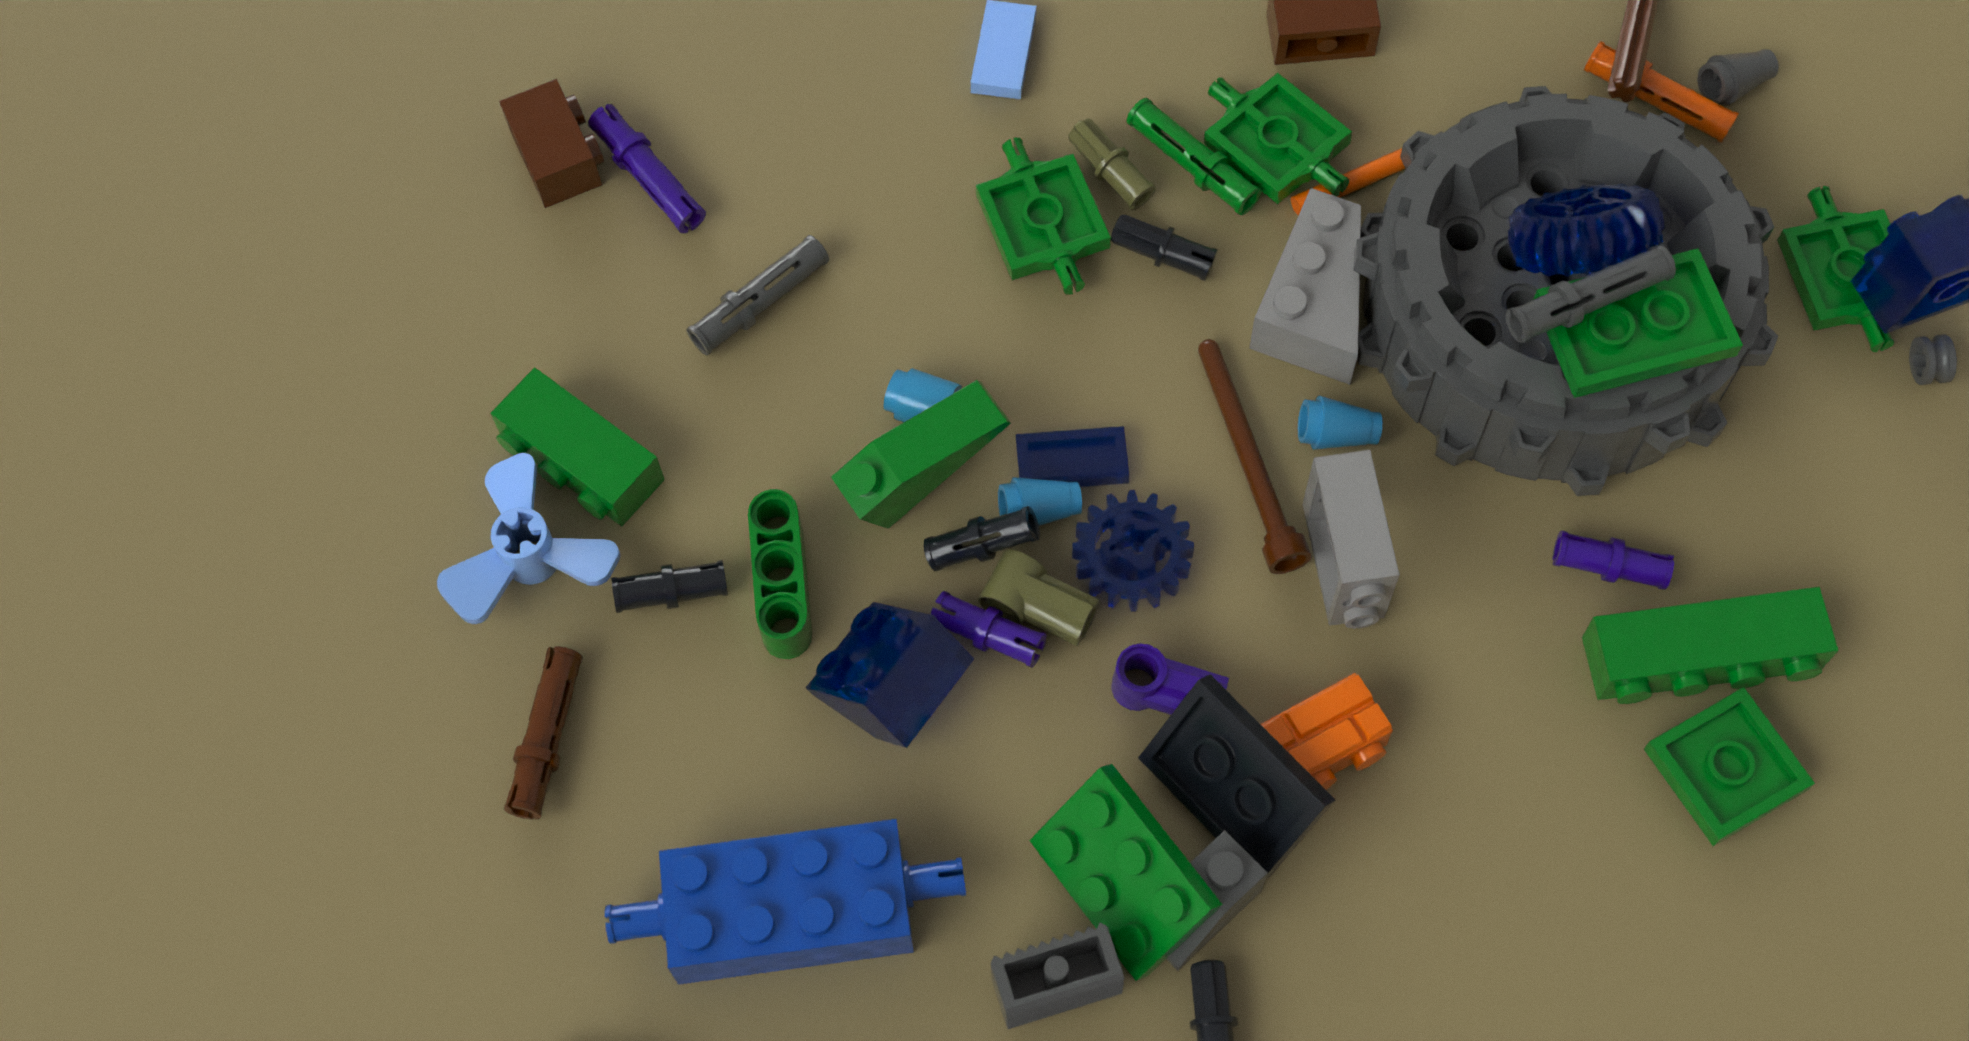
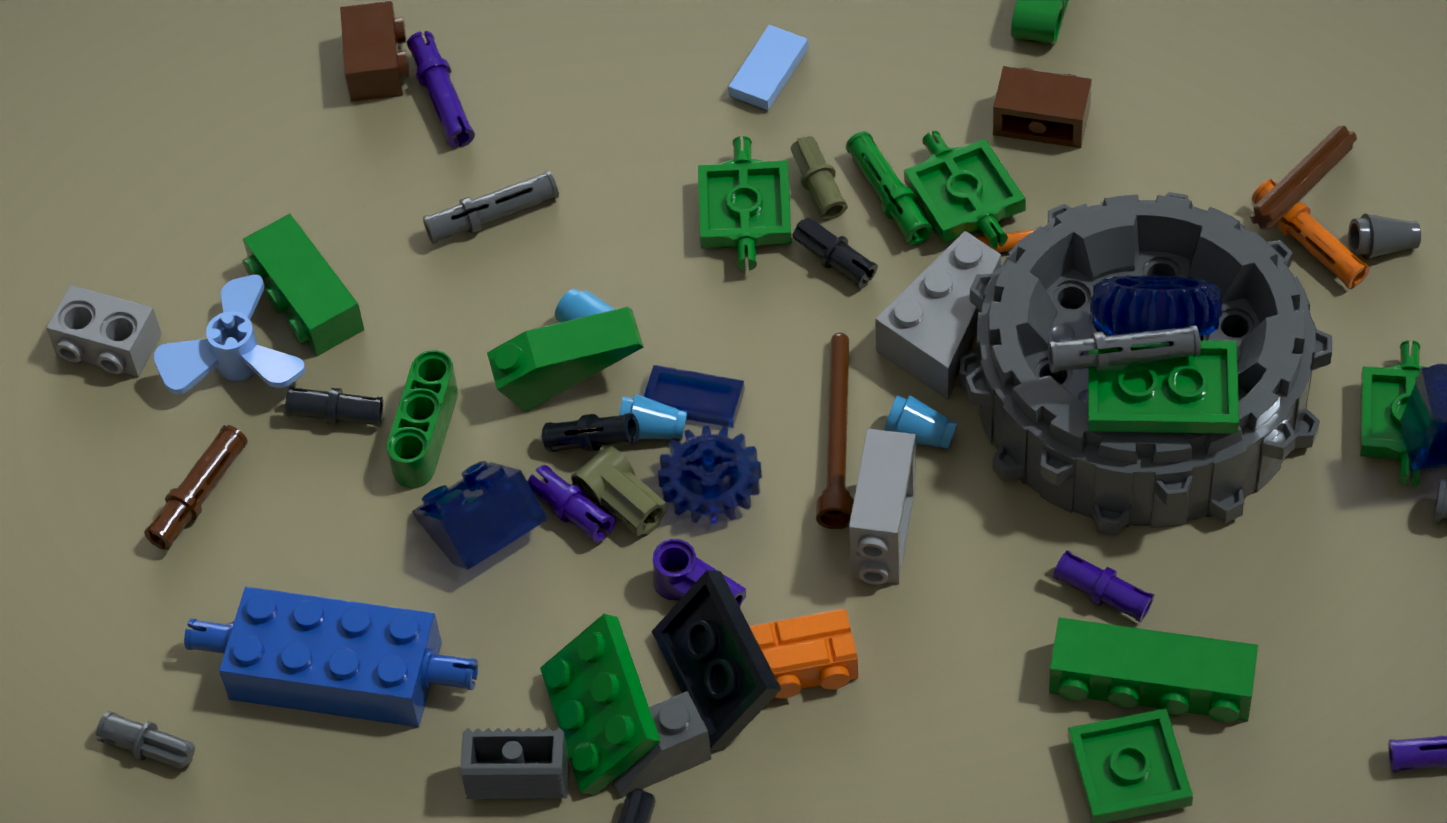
camera: 20 degrees right, 10 degrees down
(365, 557) = (104, 331): none -> light grey brick

